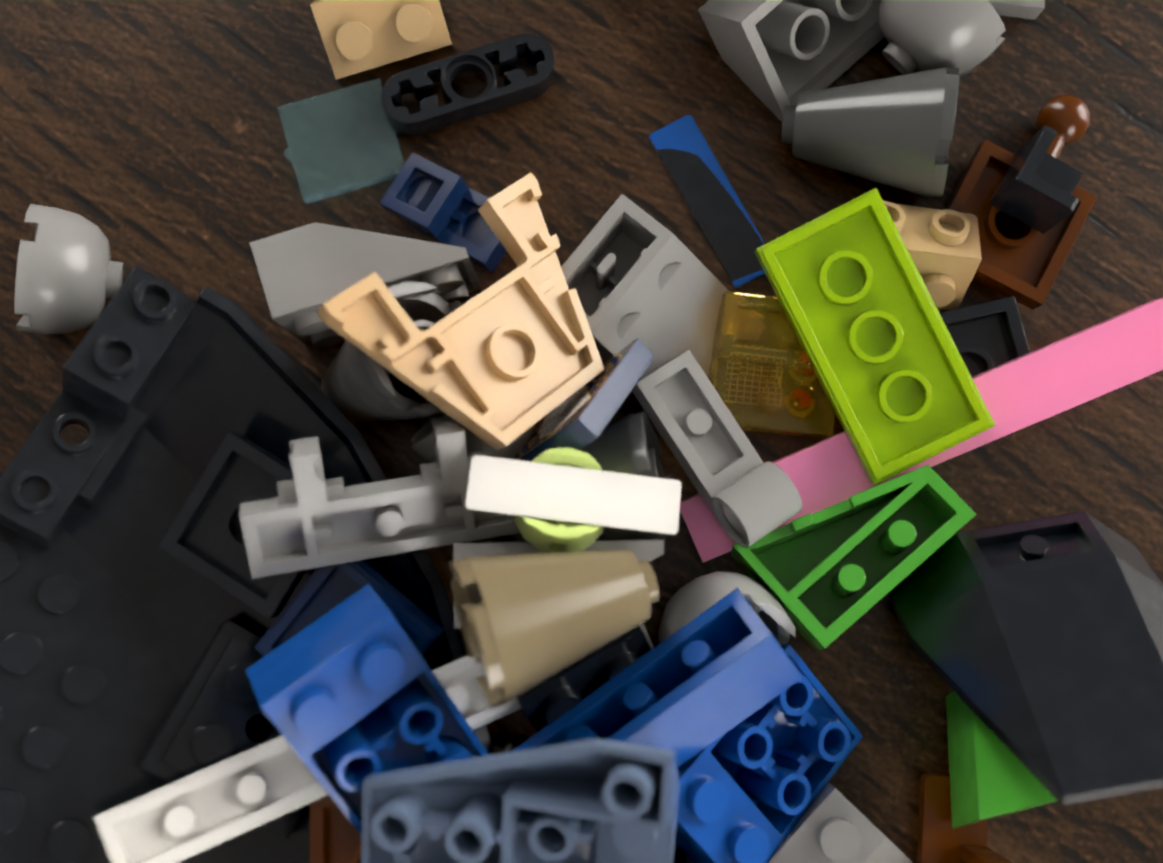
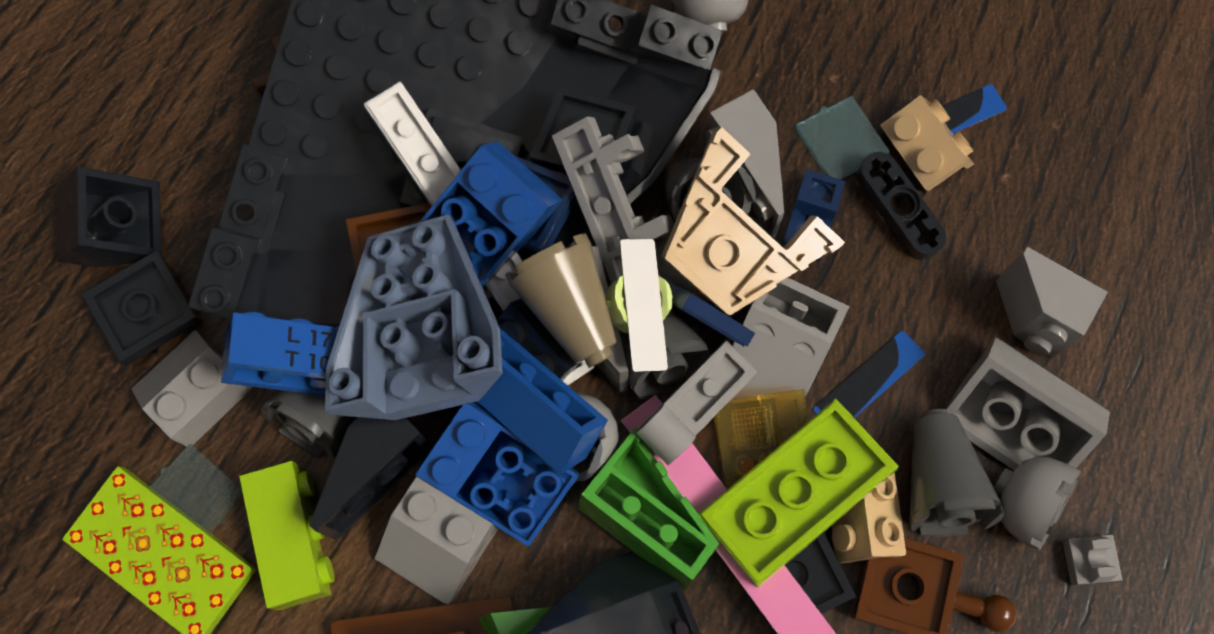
camera: 80 degrees right, 10 degrees down
(1037, 185) = (939, 591): black panel -> none

